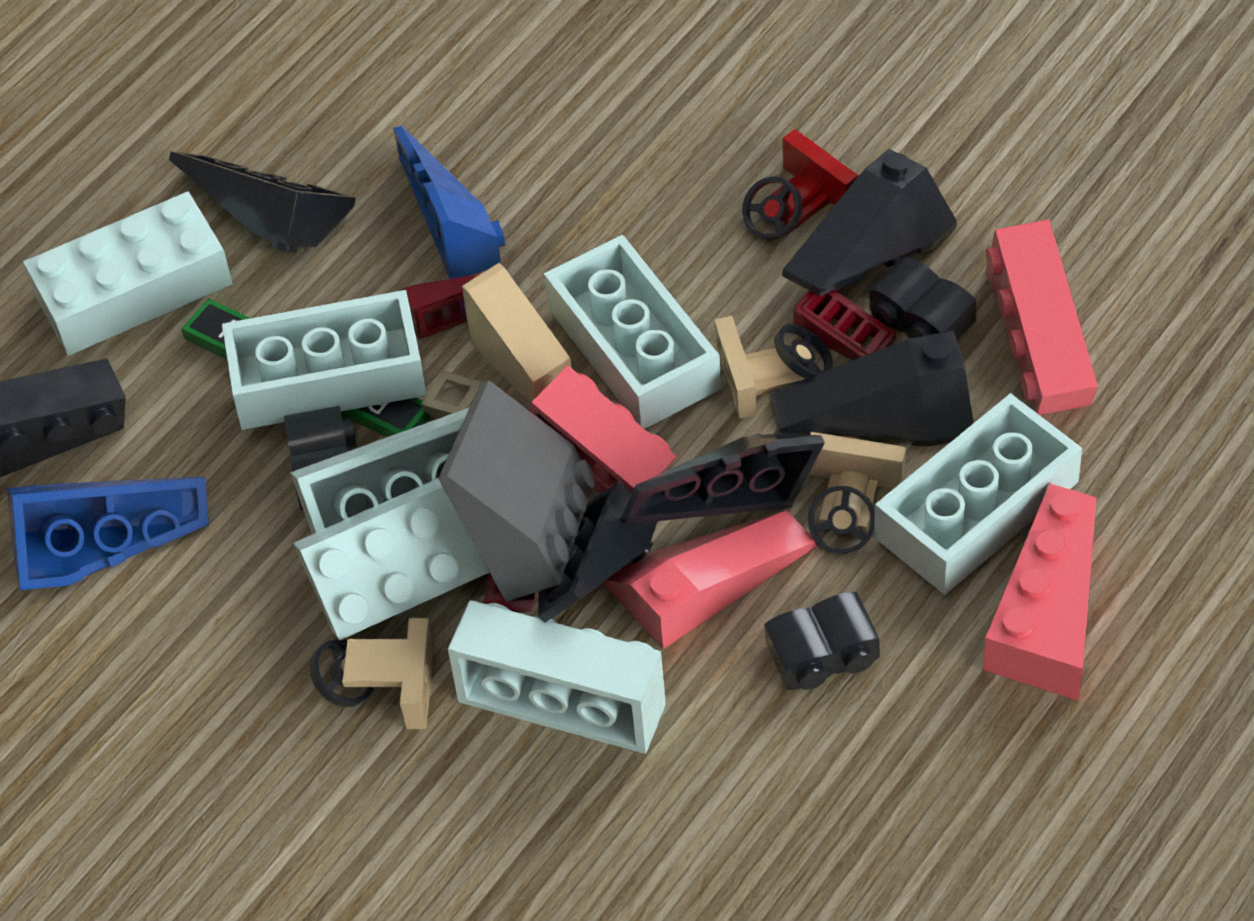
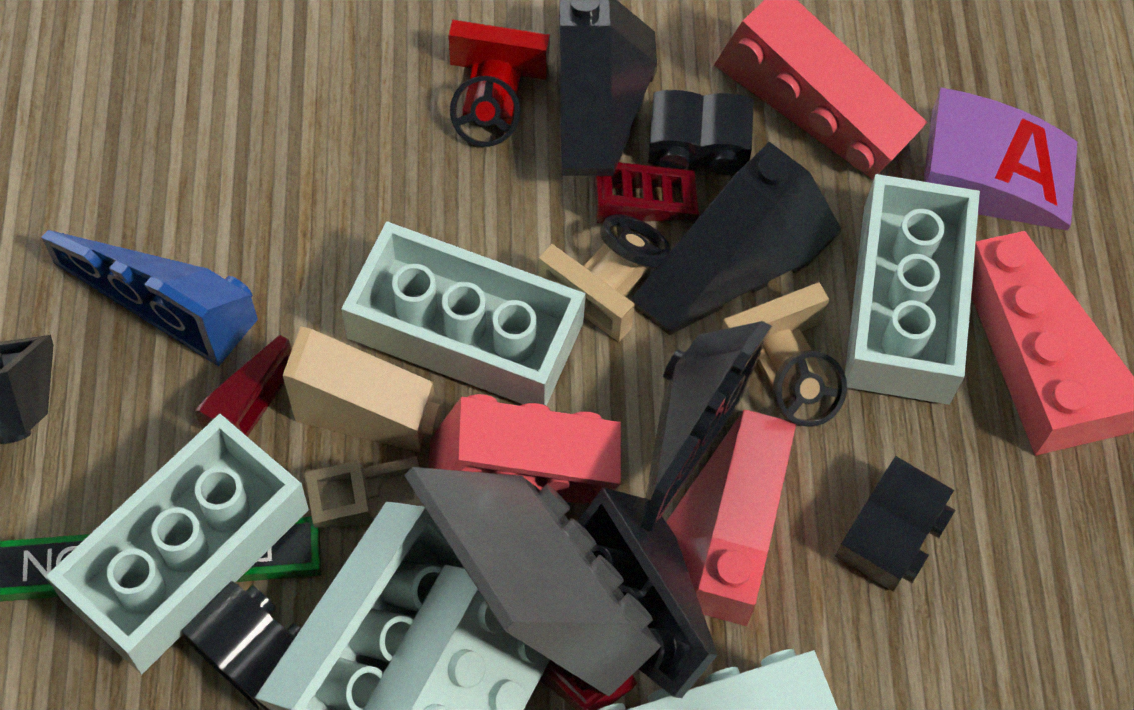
camera: 45 degrees left, 10 degrees up
(1144, 450) = (1005, 154): none -> medium lavender slope

